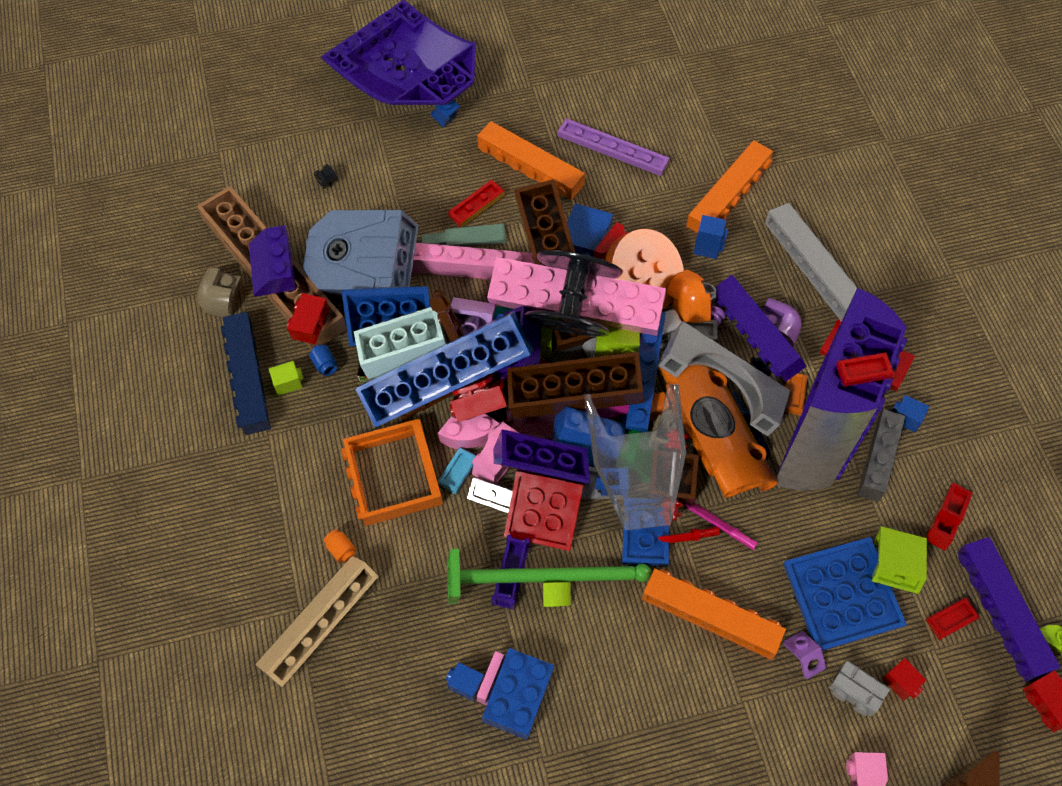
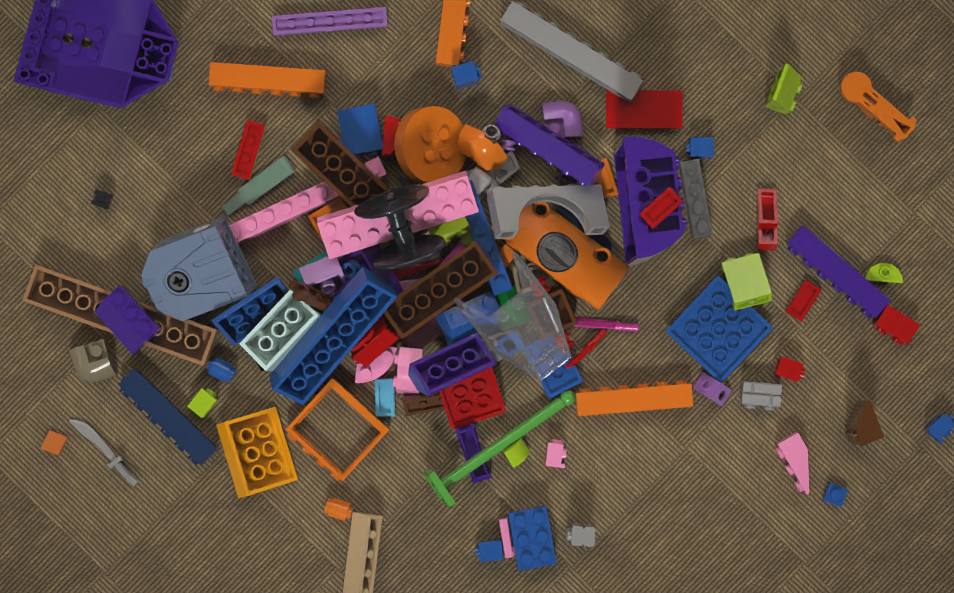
camera: 30 degrees left, 25 degrees up
(131, 340) = (54, 443): none -> orange slope
(170, 384) = (90, 434): none -> light grey sword
(302, 449) = (257, 452): none -> light orange slope
(308, 318) = (193, 352): red brick -> none
(574, 720) = (581, 535): none -> light grey brick
(596, 621) = (555, 454): none -> bright pink brick
(1026, 400) = (784, 88): none -> lime slope

